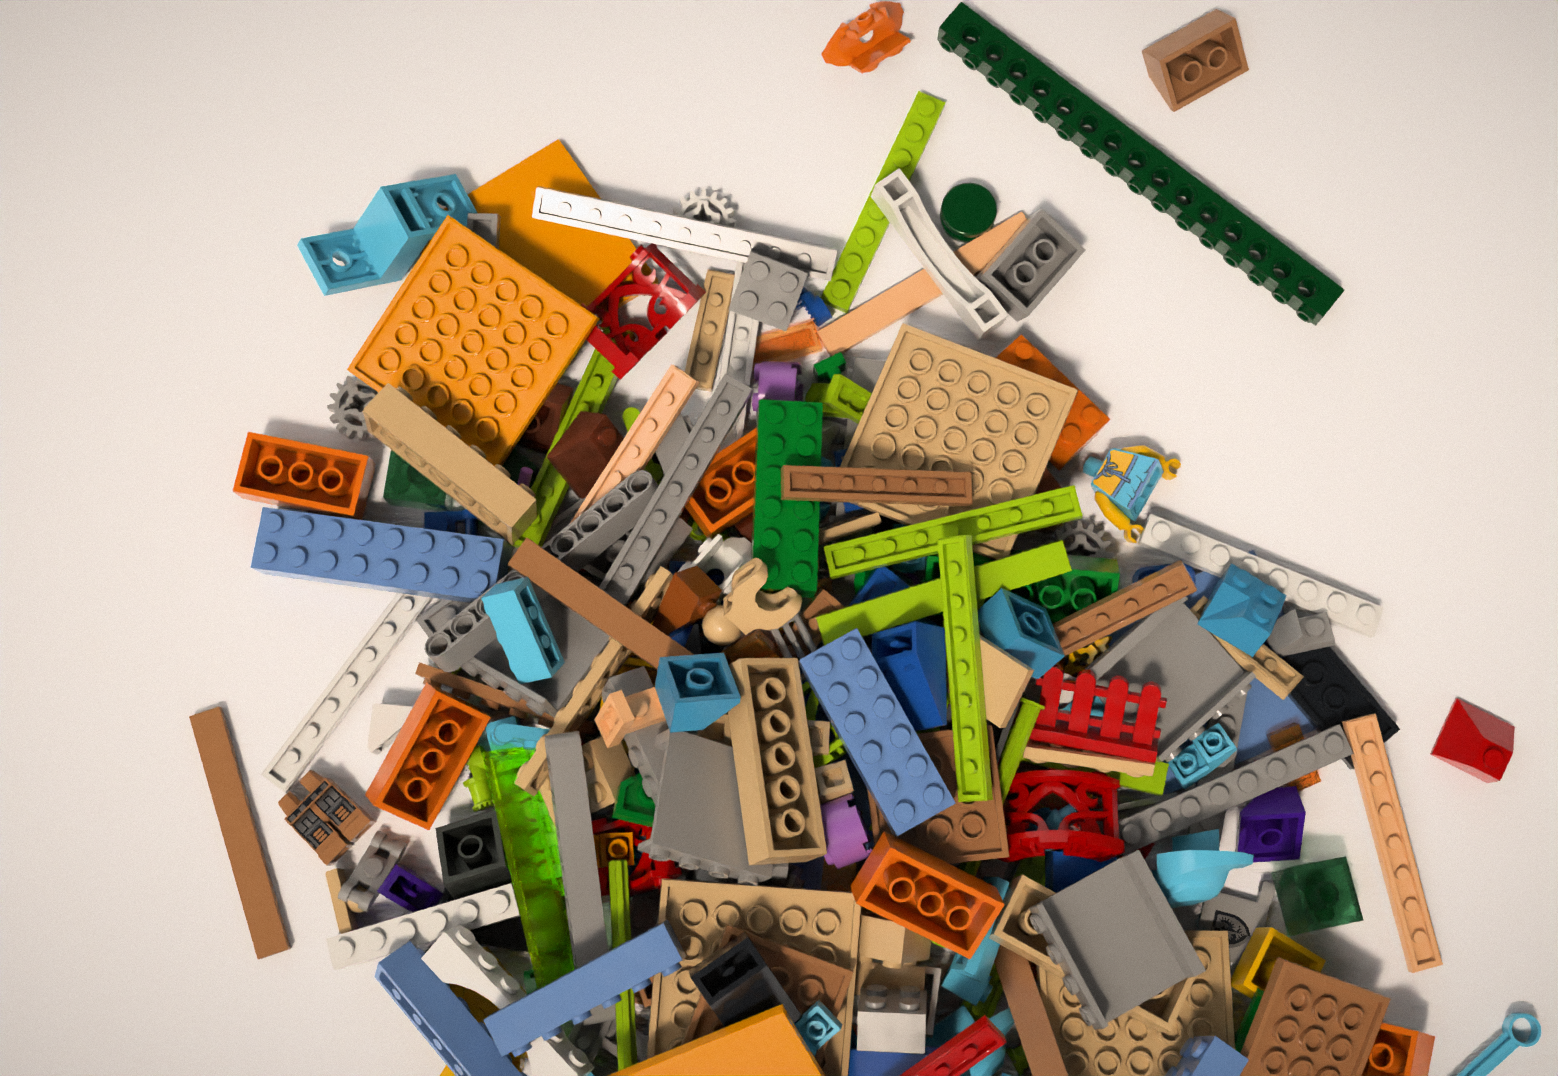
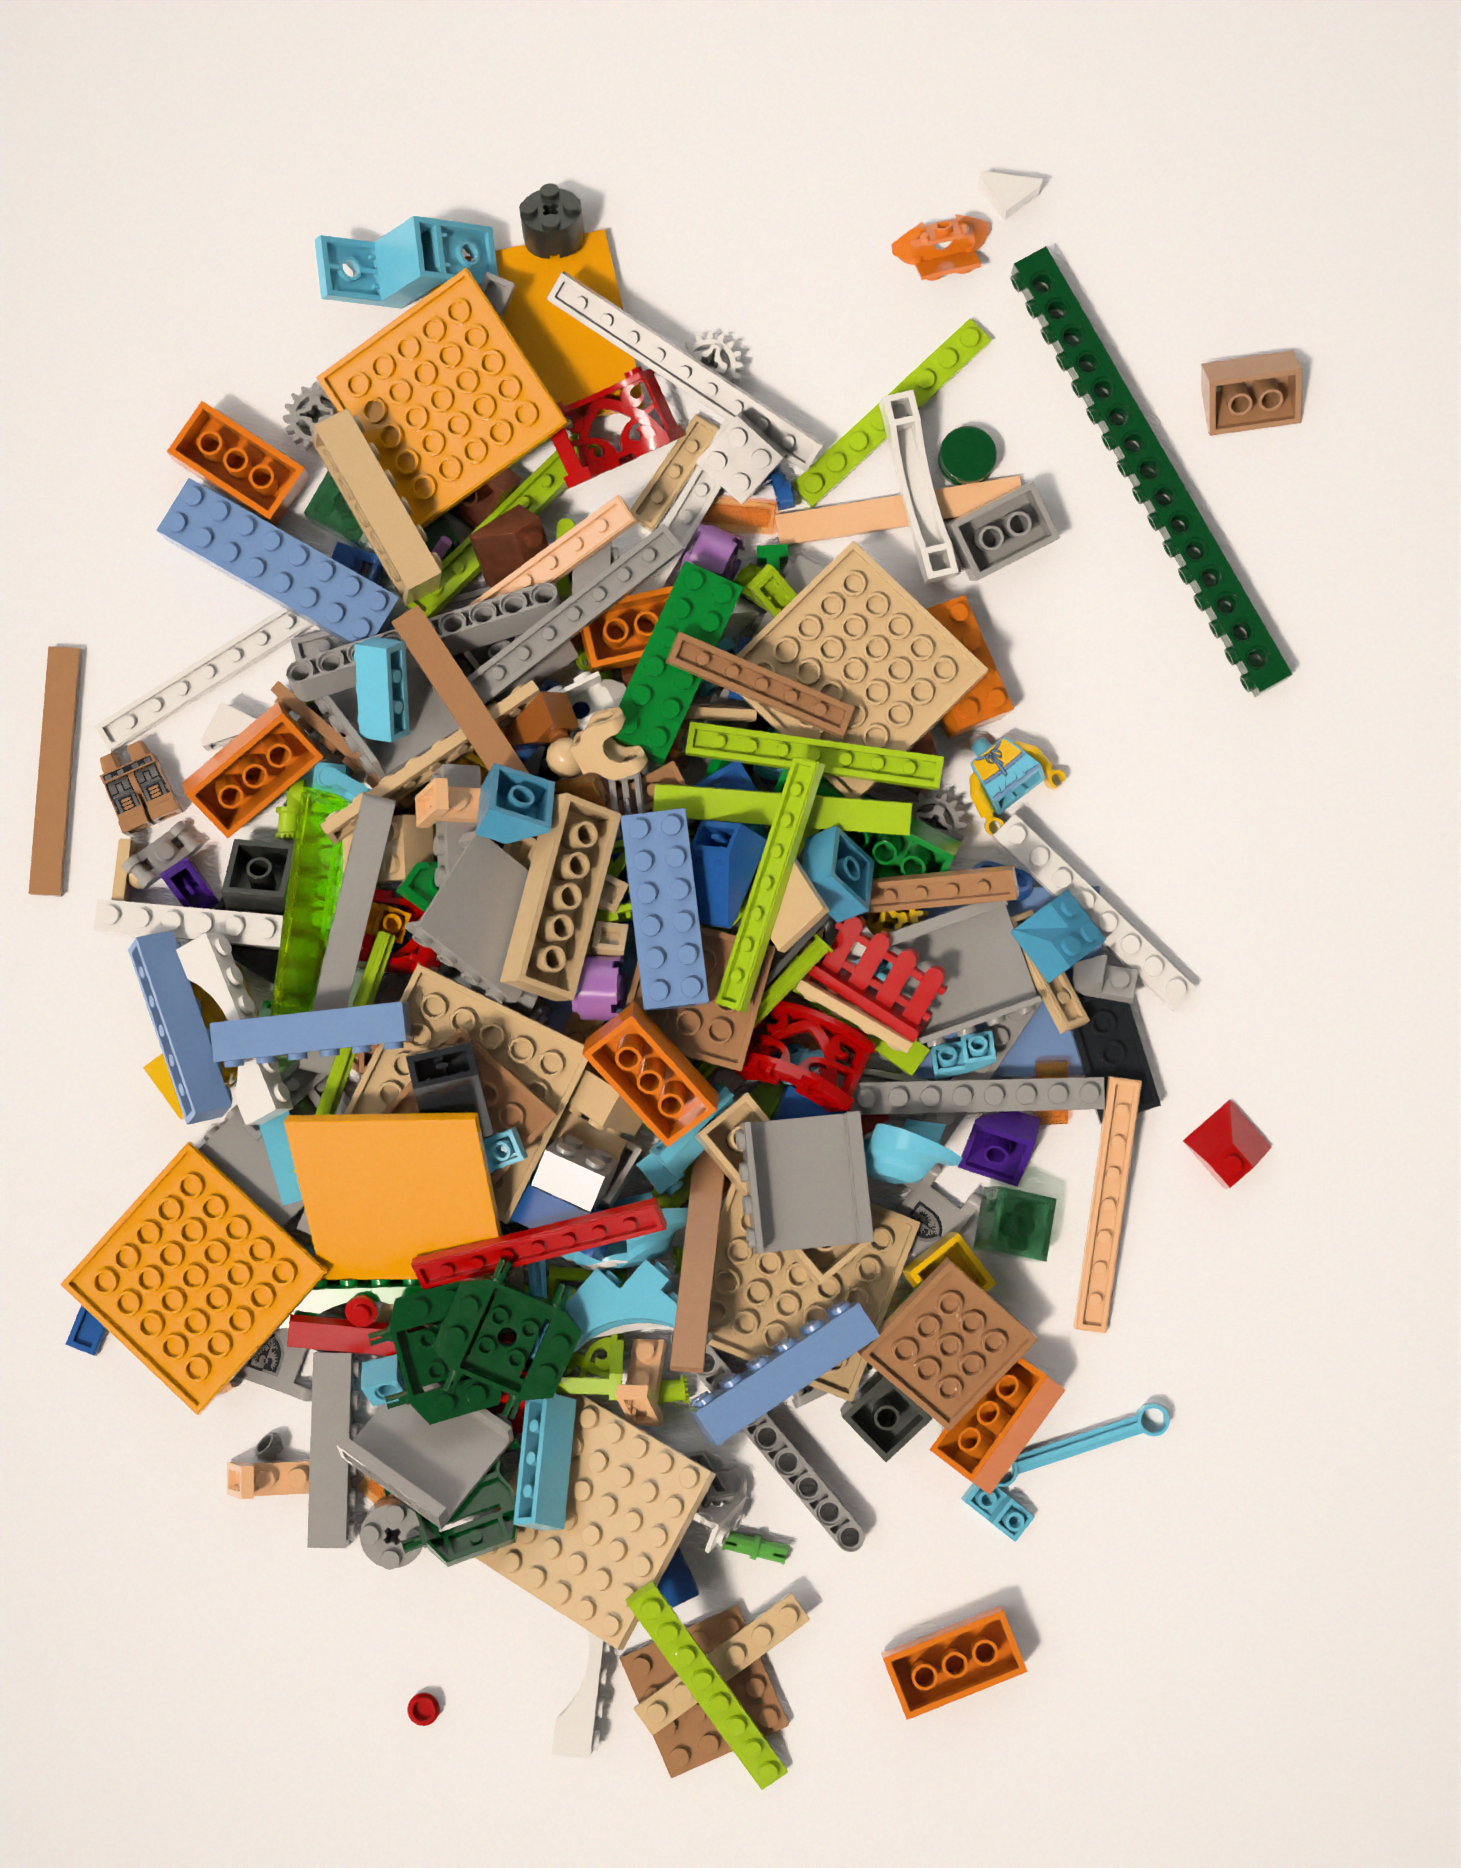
camera: 20 degrees right, 5 degrees up
(509, 149) = (552, 222): none -> pearl dark grey brick

